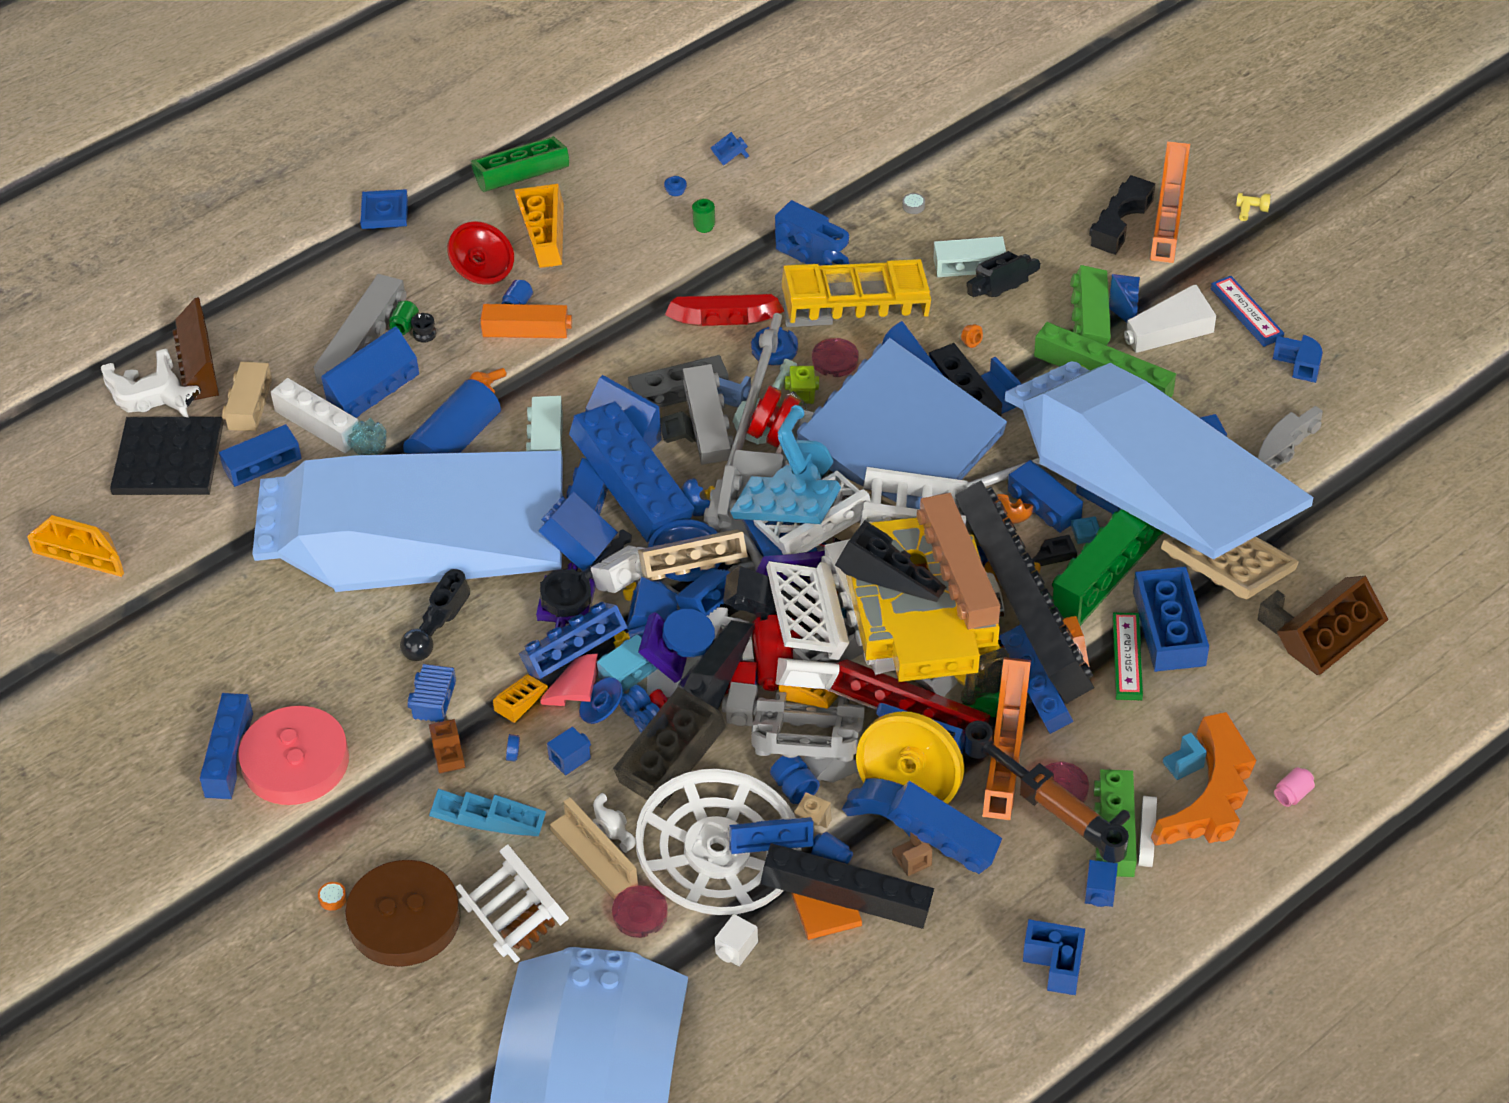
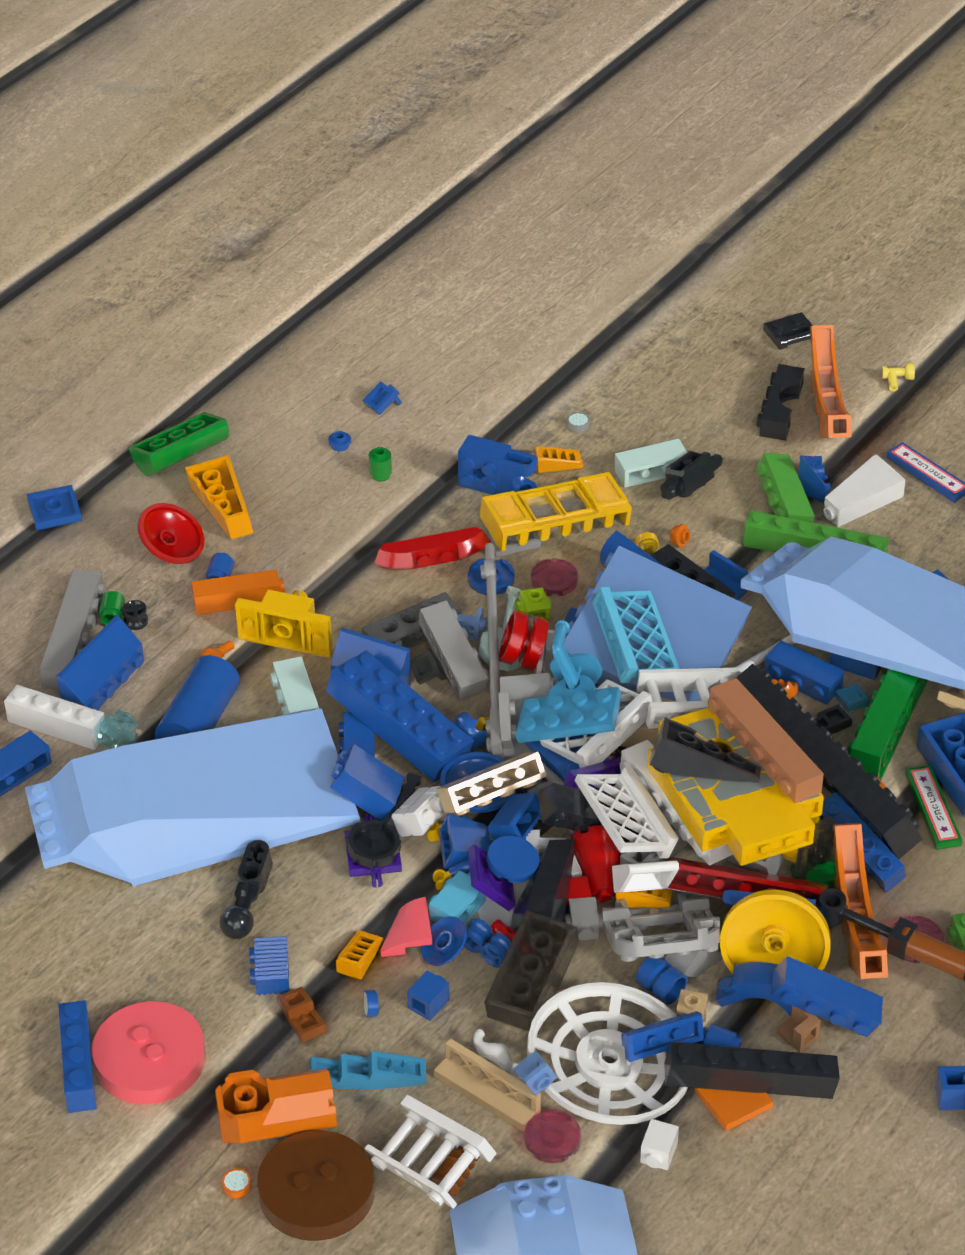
camera: 15 degrees left, 5 degrees down
(386, 830) = (274, 1106): none -> orange brick
(556, 358) = (285, 623): none -> yellow brick
(572, 640) = (396, 888): blue brick -> none
(634, 847) = (535, 1073): none -> medium blue bracket
(857, 424) = (618, 635): none -> medium azure fence
(871, 238) = (556, 459): none -> light orange slope
(935, 338) = (647, 542): none -> yellow tile
(1154, 140) = (788, 330): none -> black plate

